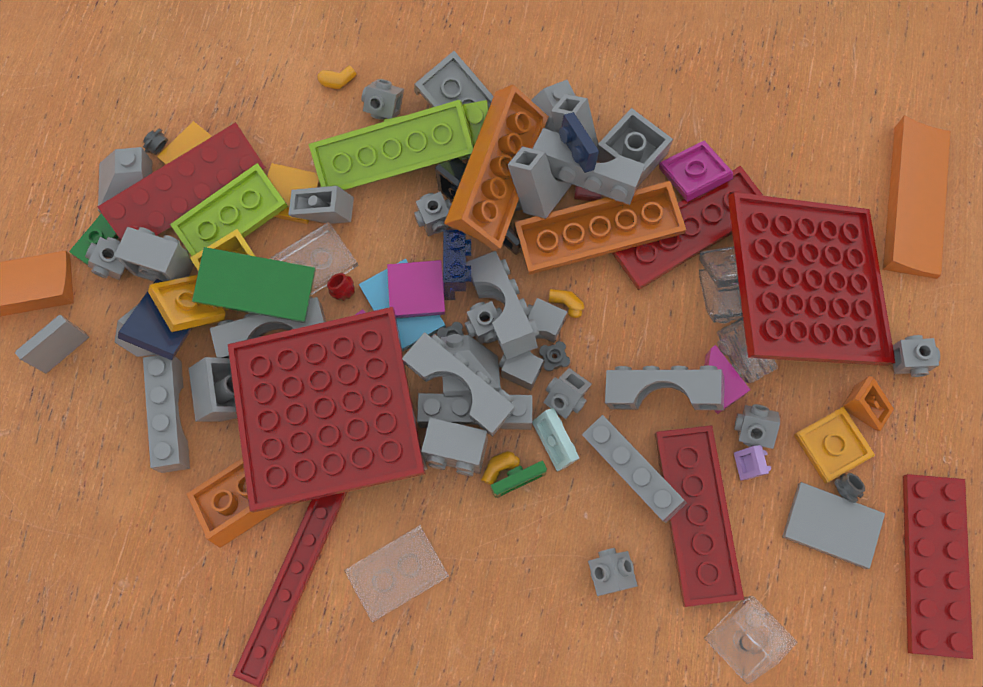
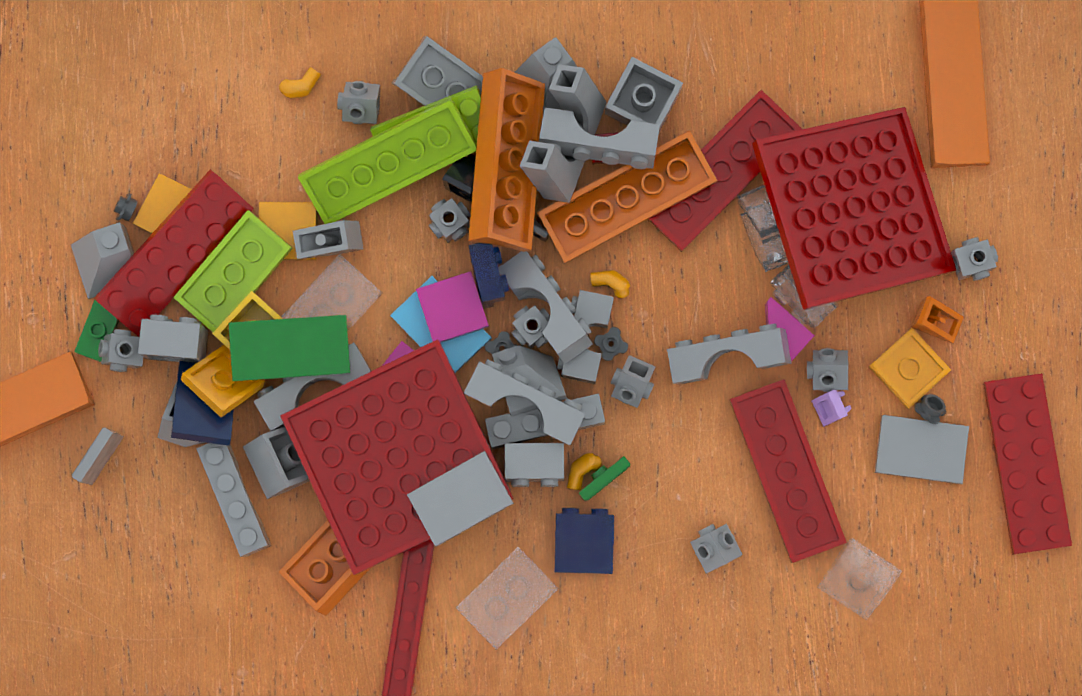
camera: 10 degrees left, 10 degrees up
(341, 286) = (373, 322): red plate -> none
(372, 460) = (460, 499): none -> light grey tile
(484, 535) = (584, 541): none -> clear blue plate
(555, 439) = (631, 430): light aqua plate -> none
(579, 142) = (591, 127): dark blue plate -> none
(634, 469) = (714, 443): light grey arch -> none
(696, 171) = (714, 105): dark pink tile -> none

